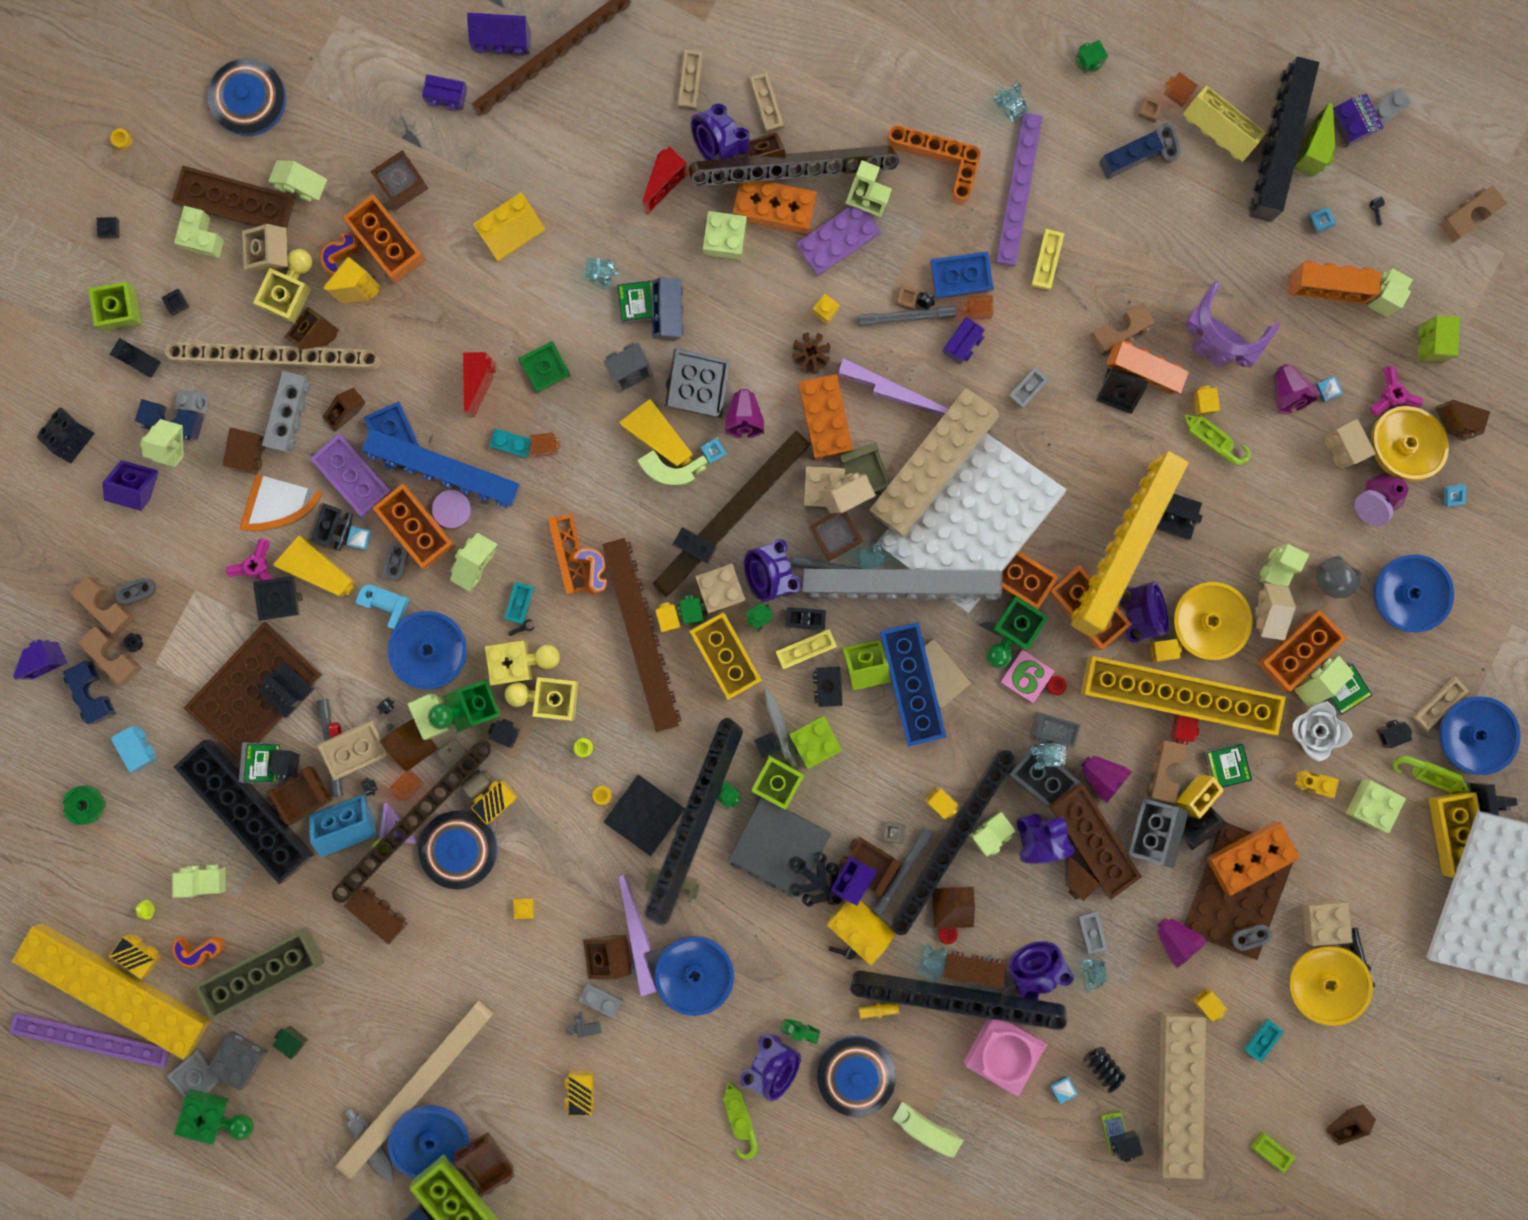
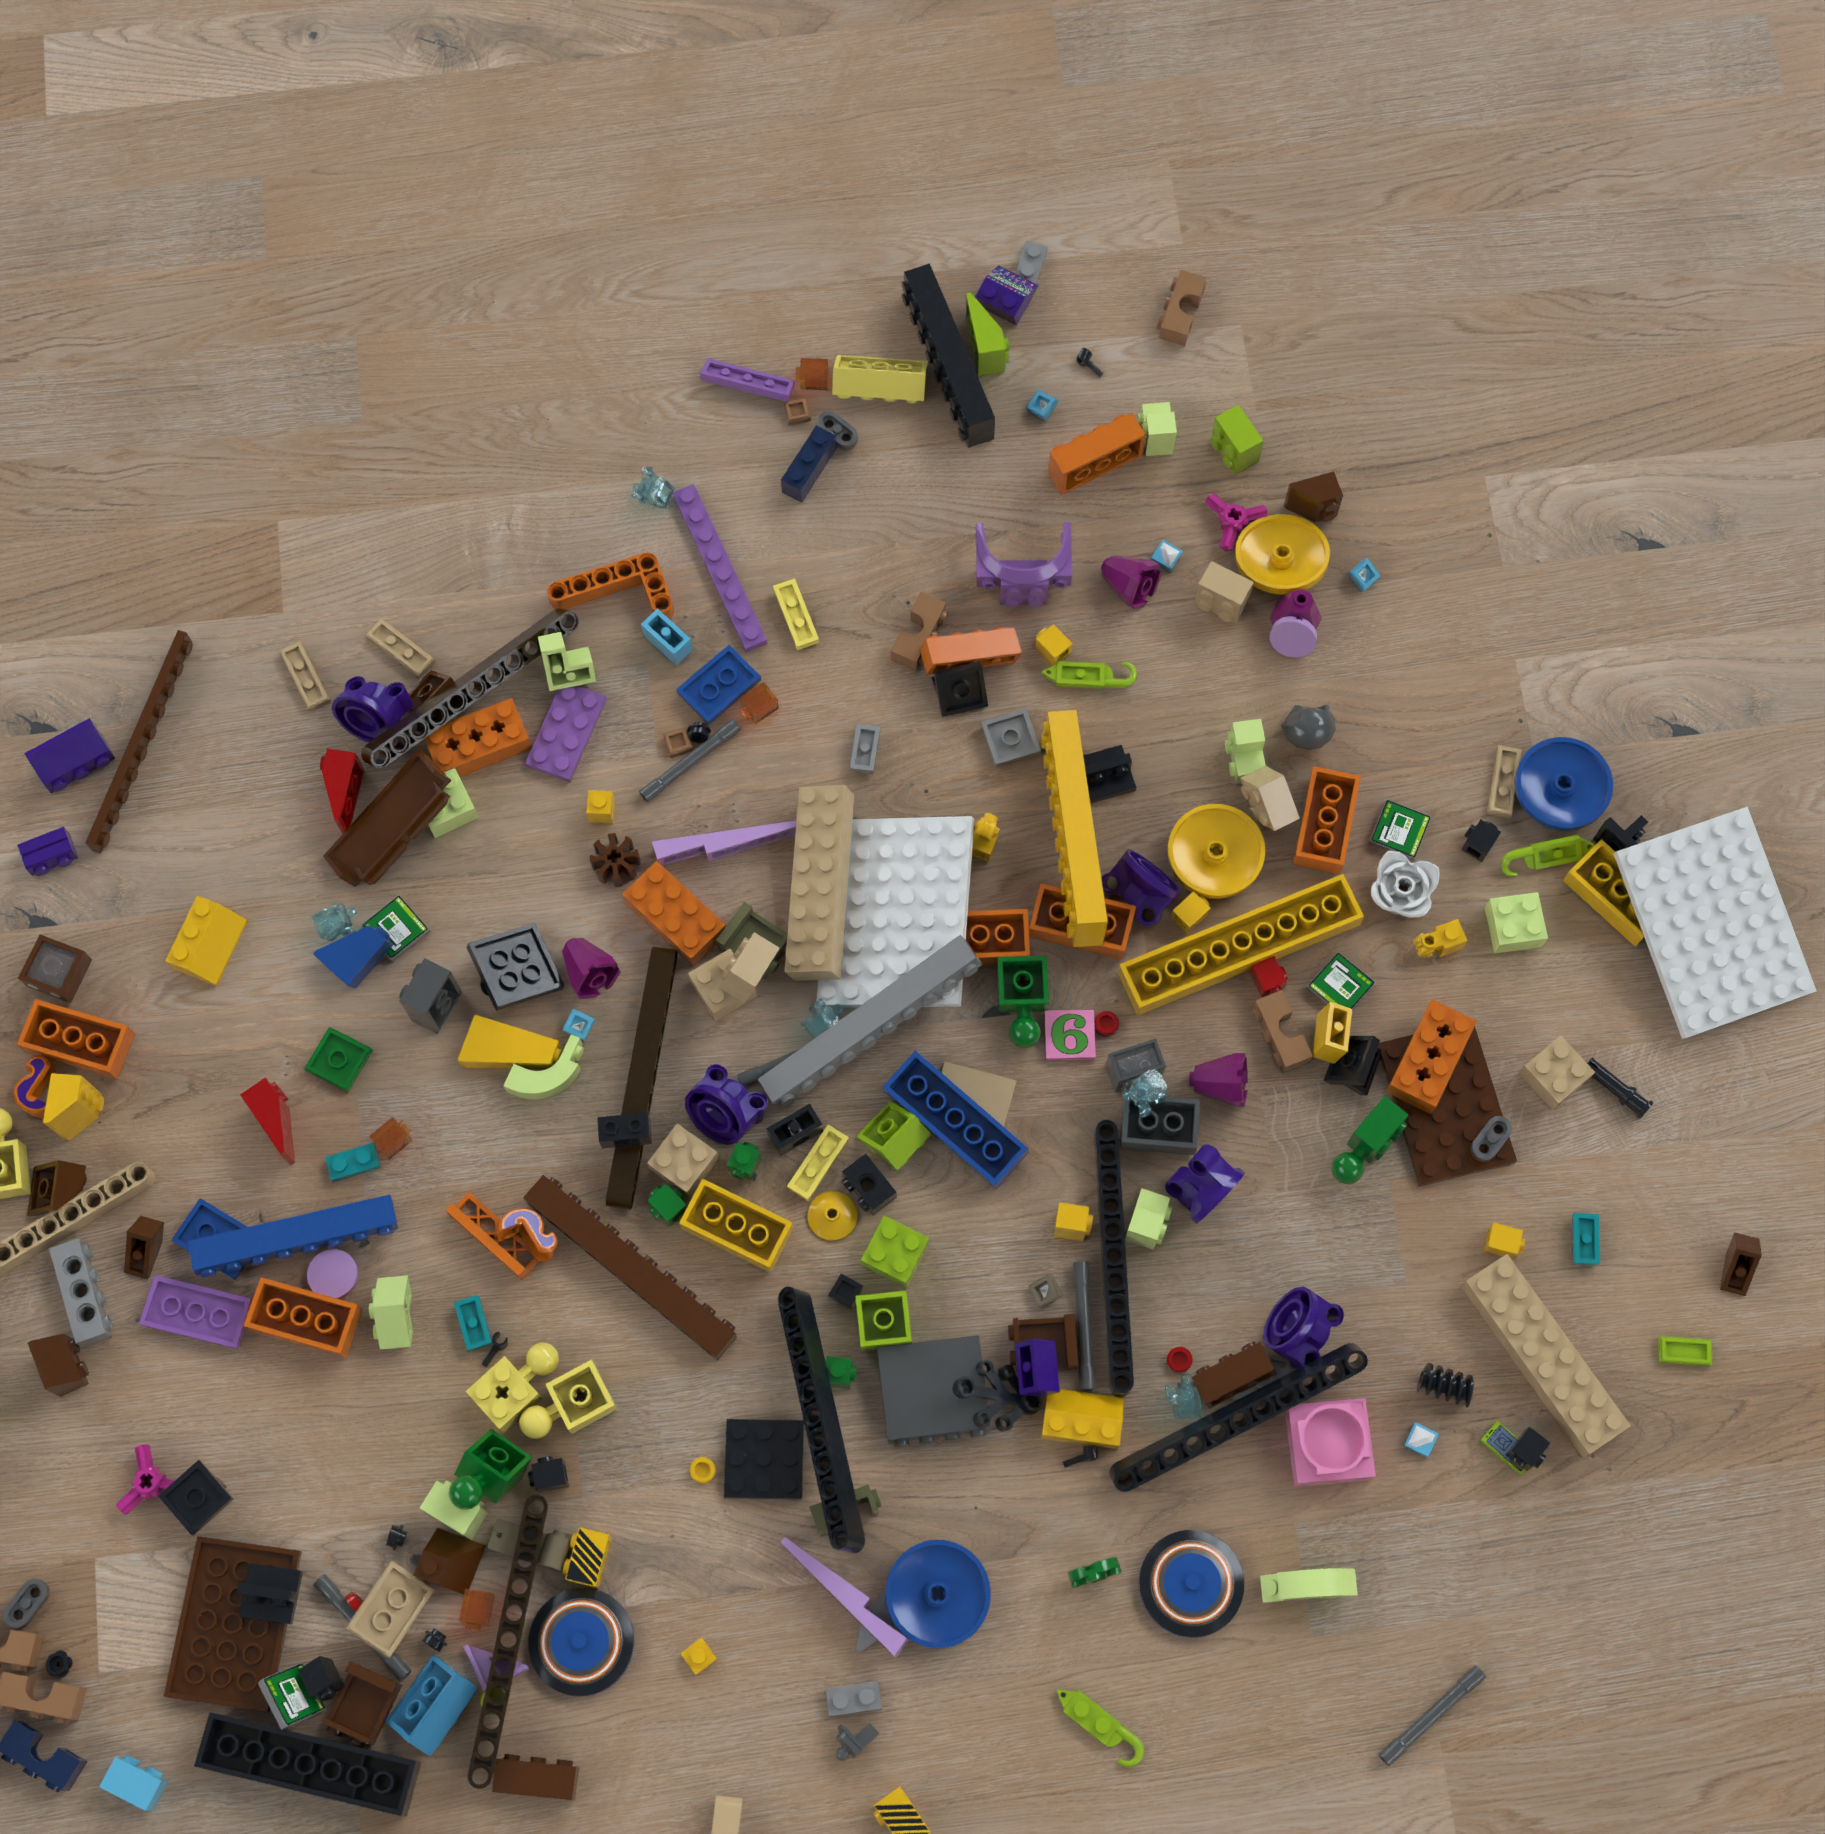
camera: 30 degrees left, 15 degrees down
(276, 504) = (130, 1401): sticker -> none
(312, 565) = (218, 1438): yellow slope -> none
(325, 525) = (201, 1382): black brick -> none
(358, 538) = (247, 1374): tile -> none
(384, 600) = (319, 1421): medium azure piece -> none
(394, 561) = (304, 1372): flat silver plate -> none
(427, 650) = (404, 1441): blue dish -> none
(583, 747) = (647, 1432): neon yellow plate -> none
(599, 303) = (355, 954): none -> blue slope
(607, 957) = (828, 1643): reddish brown slope -> none
(667, 309) = (432, 914): brick -> none
(667, 617) = (647, 1229): yellow brick -> none
(679, 226) = (390, 822): none -> reddish brown slope
(772, 1068) = (1093, 1635): dark purple piece -> none
(782, 685) = (832, 1228): none -> yellow dish
(787, 746) = (868, 1277): light grey piece -> none
(835, 535) = (767, 1022): piece -> none
(878, 1010) = (1164, 1492): yellow pin -> none
(949, 217) = (666, 637): none -> medium azure brick
(953, 907) = (1164, 1324): reddish brown slope -> none
(963, 340) = (765, 745): dark purple brick -> none
(1067, 504) = (985, 836): none -> yellow brick
(1078, 880) = (1273, 1205): reddish brown slope -> none
(1091, 56) = (703, 399): green brick -> none
(1092, 932) = (1328, 1250): light grey plate -> none
(1095, 841) = (1261, 1150): reddish brown plate -> none
(1095, 975) = (1361, 1289): clear light blue piece -> none
(1131, 62) = (747, 380): none -> medium lavender plate
(1131, 447) = (1010, 738): none -> light grey plate
(1158, 833) = (1317, 1097): dark grey brick -> none
(1172, 883) = (1370, 1141): none -> green brick
(1179, 941) = (1422, 1195): magenta cone -> none
(1324, 681) = (1369, 834): yellowish green brick -> none
(1330, 985) = (1608, 1132): yellow dish -> none
(1413, 593) = (1394, 691): blue dish -> none

